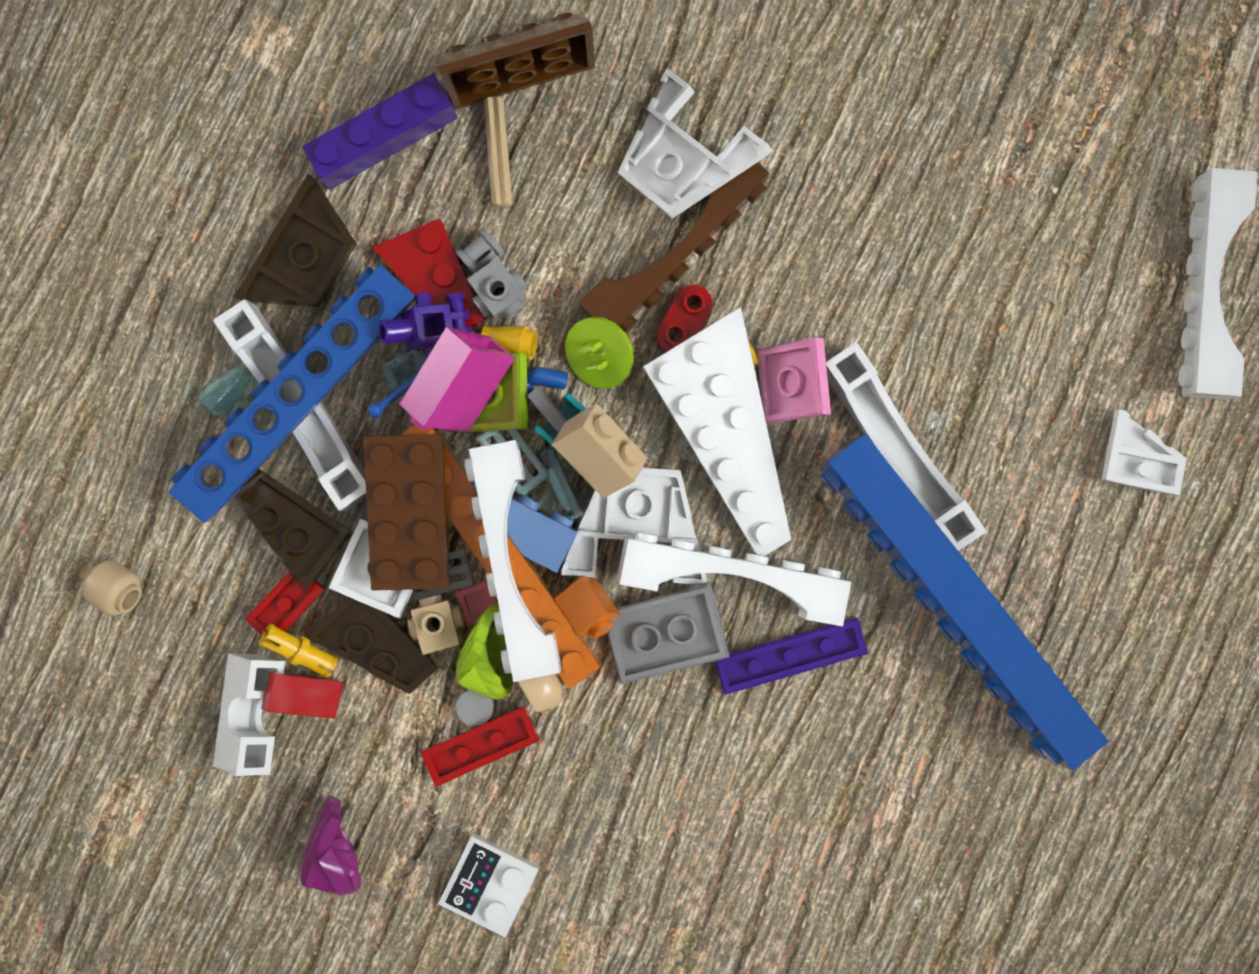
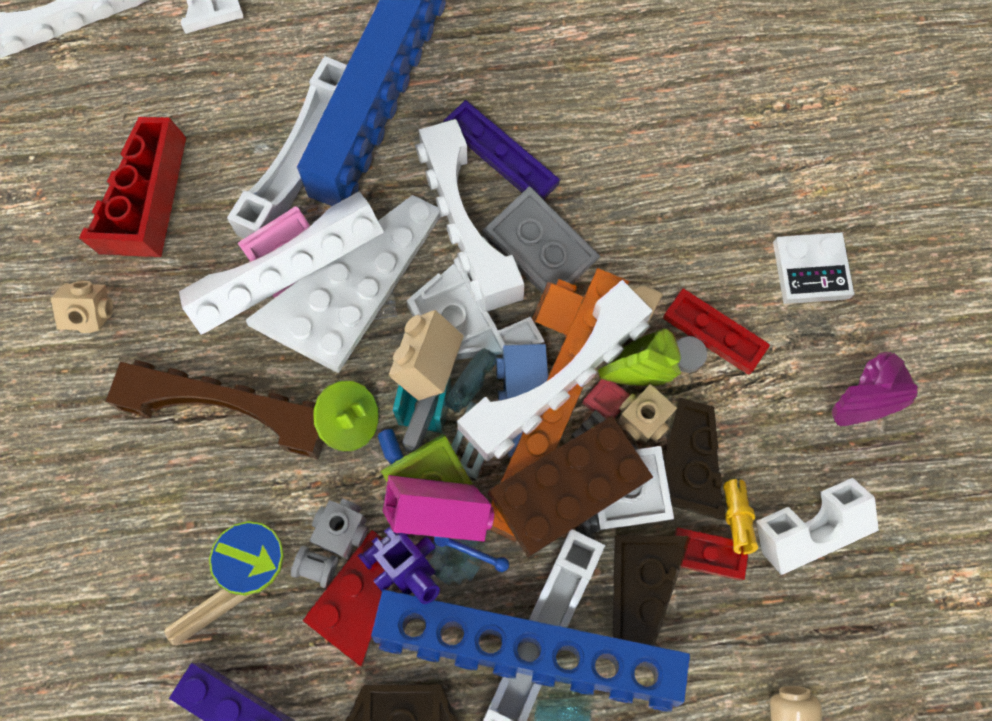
camera: 125 degrees left, 15 degrees down
(302, 695) = (773, 490): red tile -> none
(514, 338) = (372, 491): yellow cone -> none
(517, 59) = (116, 630): reddish brown slope -> none
(521, 197) = (246, 558): none -> blue piece
(672, 165) = (152, 445): white wing -> none
(684, 318) = (280, 370): red plate -> none
(782, 442) = (235, 290): none -> white arch
(850, 164) = (81, 306): none -> tan brick
(943, 276) = (140, 192): none -> red wedge

